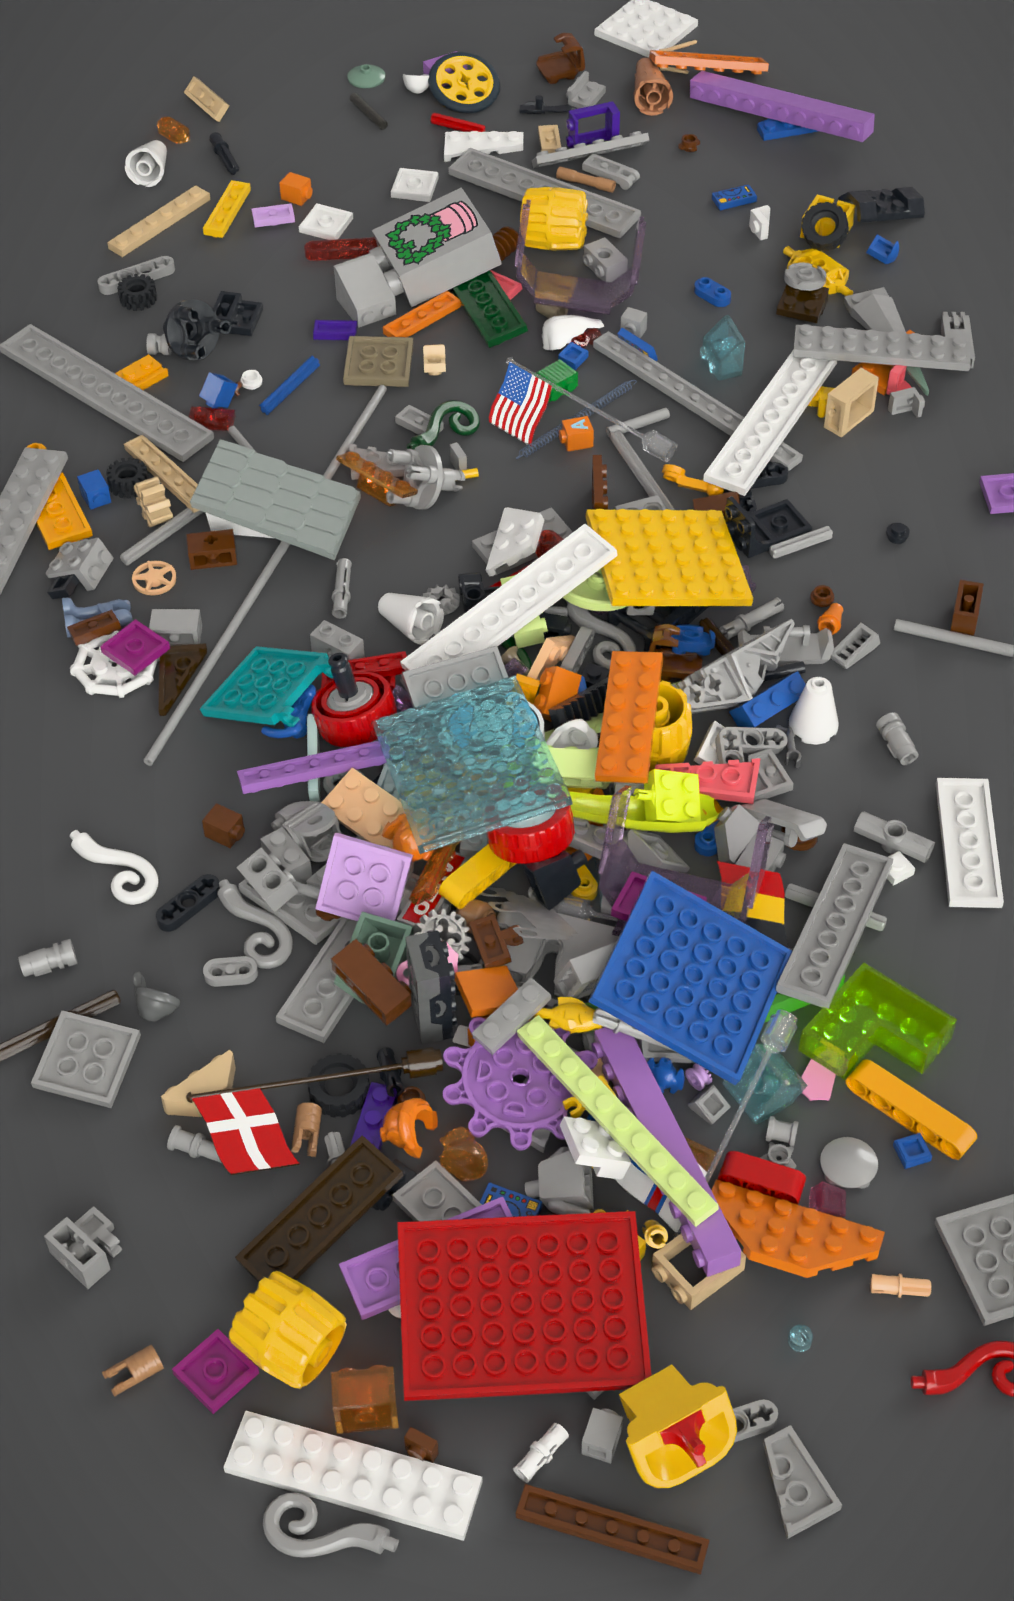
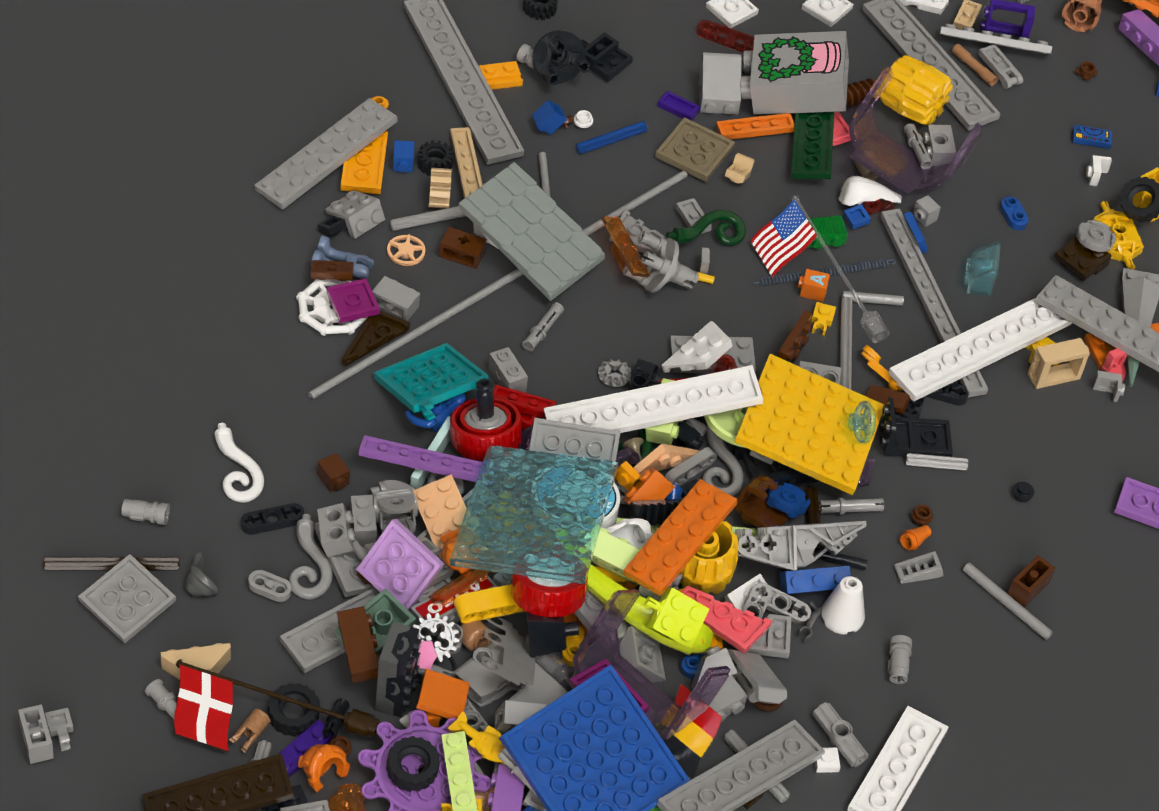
camera: 20 degrees right, 0 degrees up
(213, 417) = (533, 138): clear red plate -> none
(412, 615) = (581, 375): white cone -> none
(493, 942) = (469, 659): reddish brown plate -> none
(511, 1016) = (445, 721): light grey plate -> none
(511, 1055) = (416, 746): none -> black tyre
(580, 267) = (915, 141): none -> light grey pin
(607, 457) = (822, 317): none -> yellow plate
(719, 531) = (860, 422): none -> clear light blue piece
(801, 645) = (872, 545): light grey piece -> none

